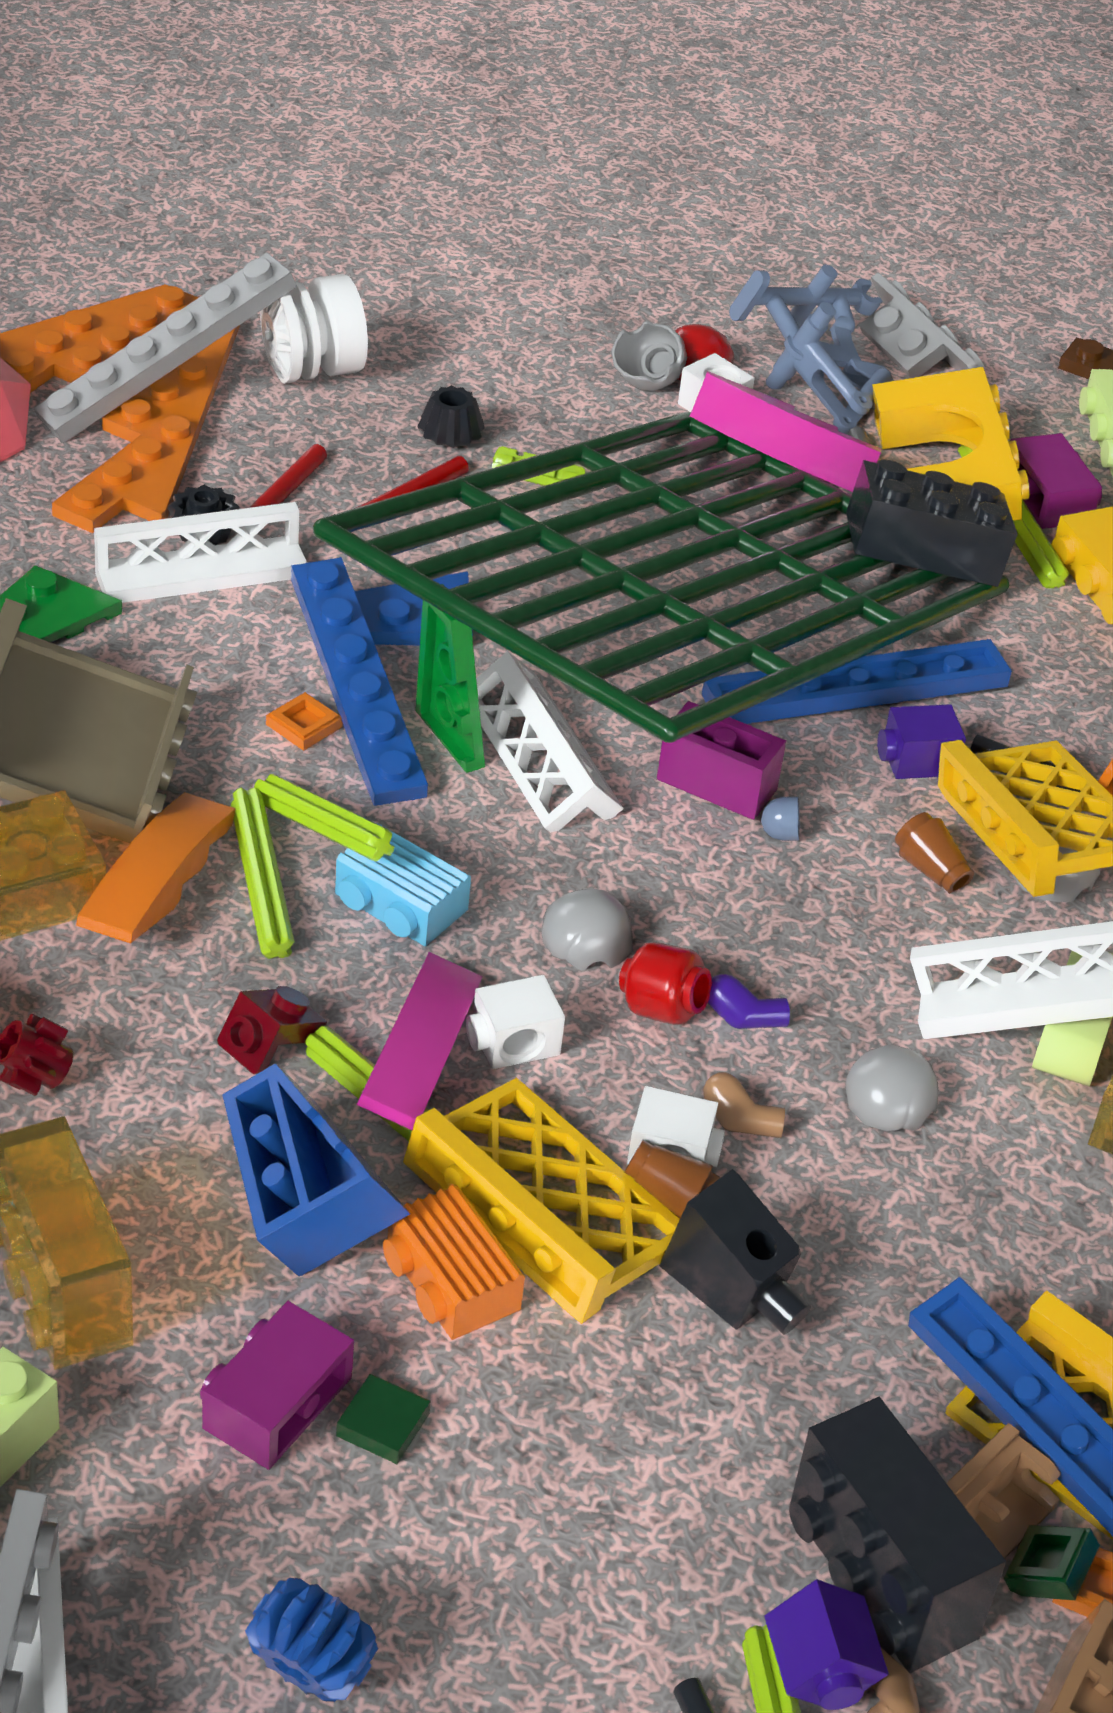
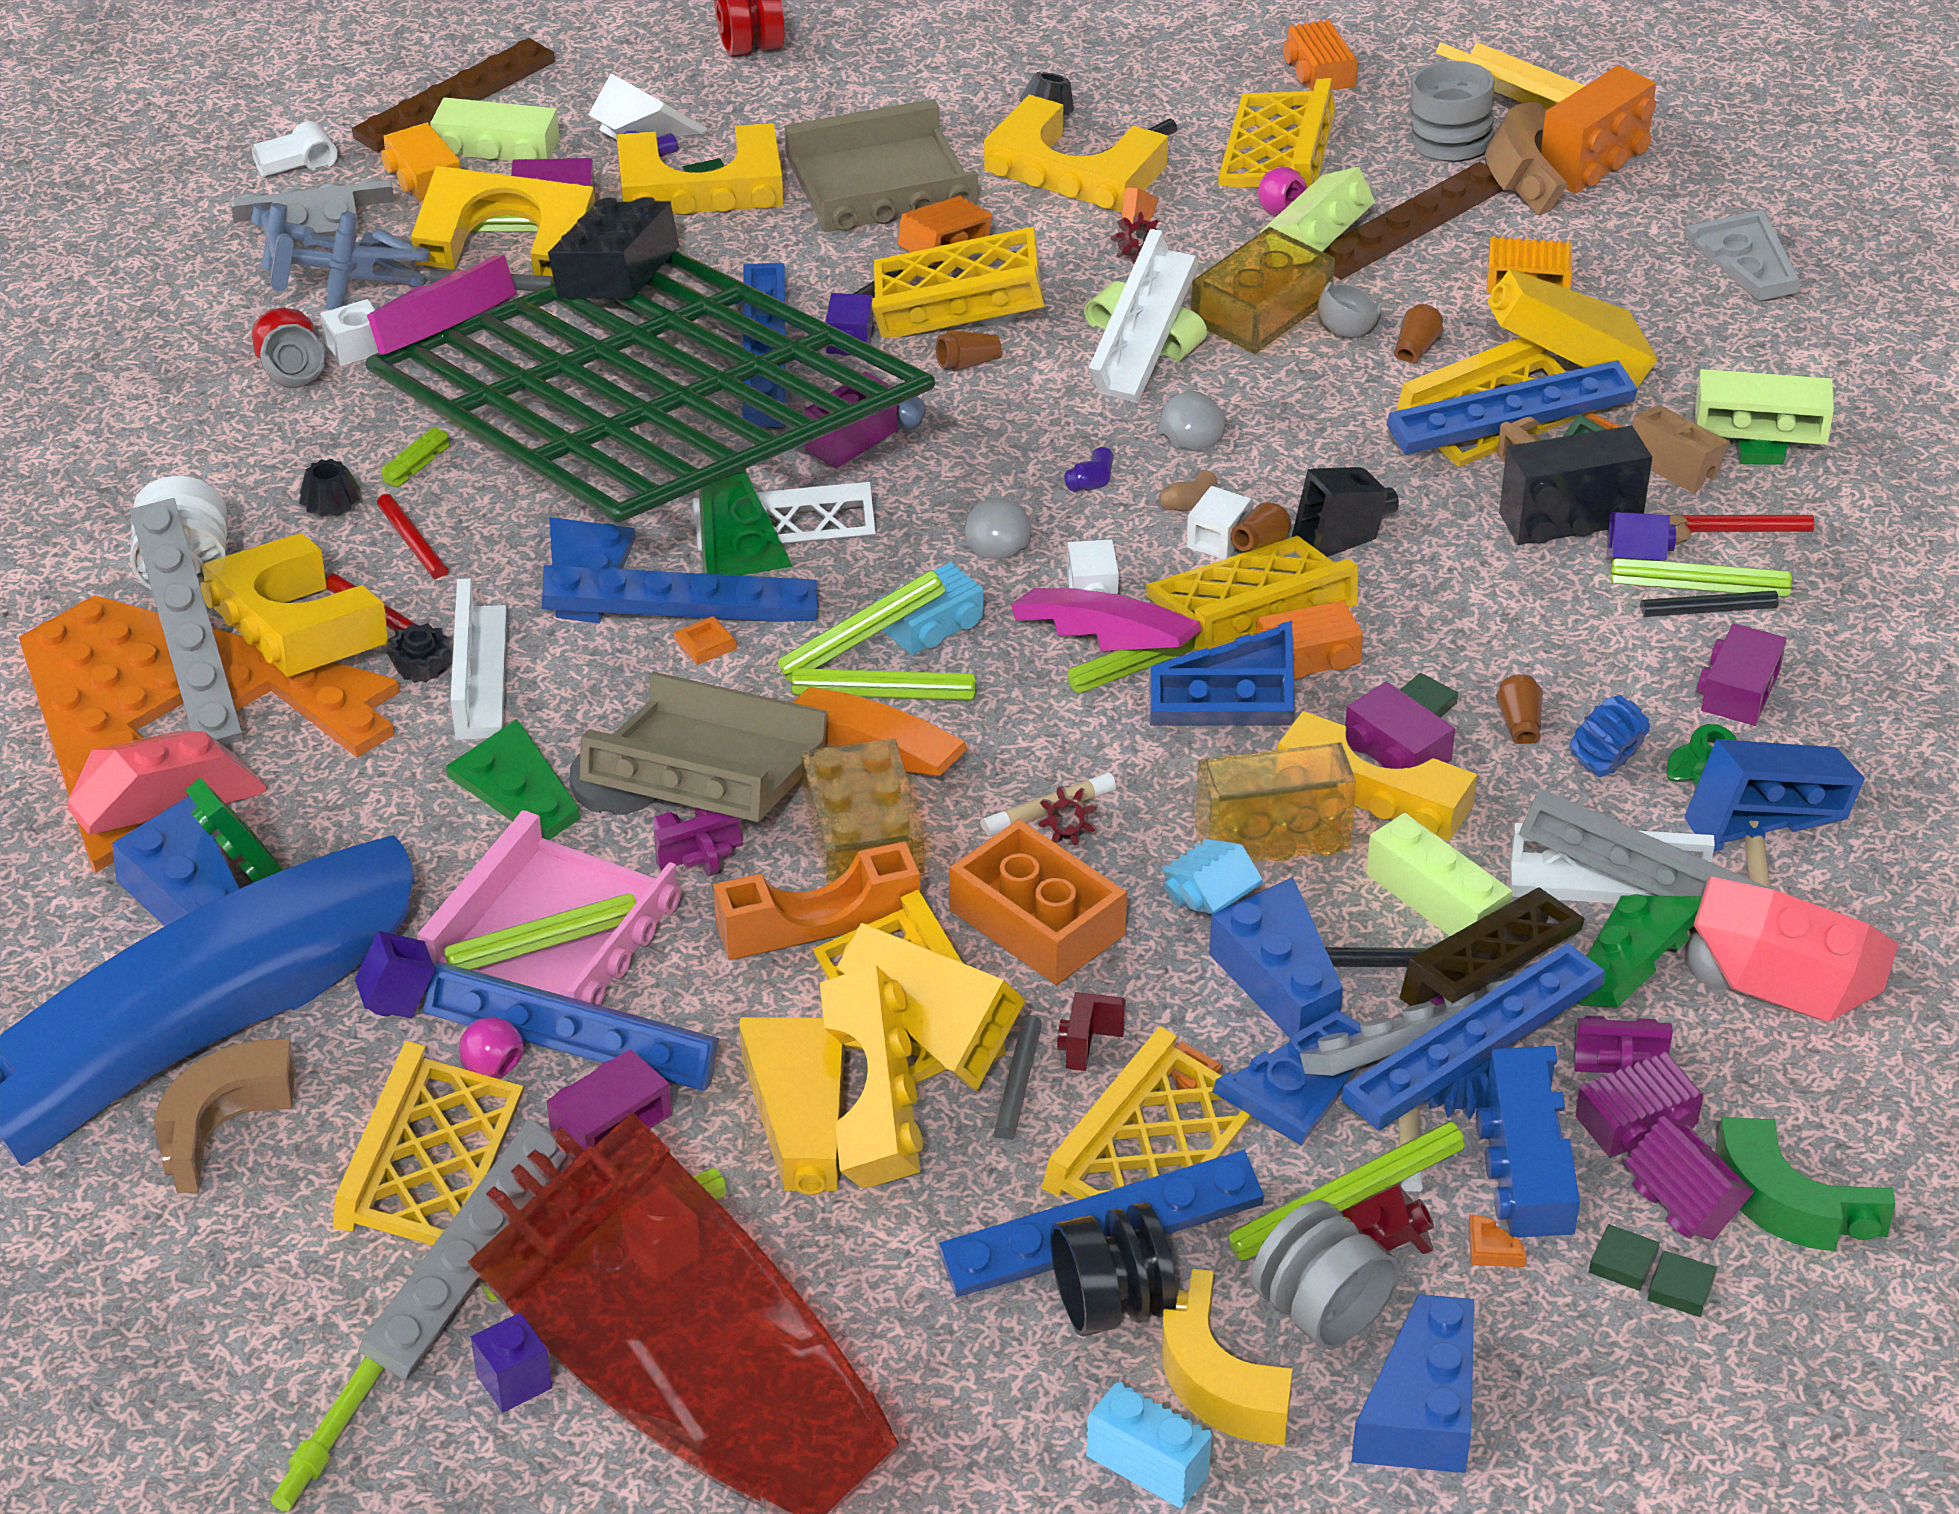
camera: 70 degrees left, 0 degrees up
(84, 1052) = (1033, 809): none -> bar
(149, 1430) = (1430, 793): none -> yellow arch
(183, 420) = (296, 637): none -> yellow arch
(263, 1022) = (1062, 697): dark red bracket -> none
(378, 1534) = (1521, 707): none -> dark orange cone
(665, 983) = (1071, 497): red head -> none
(1014, 312) = (295, 150): none -> white piece
(1041, 387) = (414, 155): none -> light orange brick

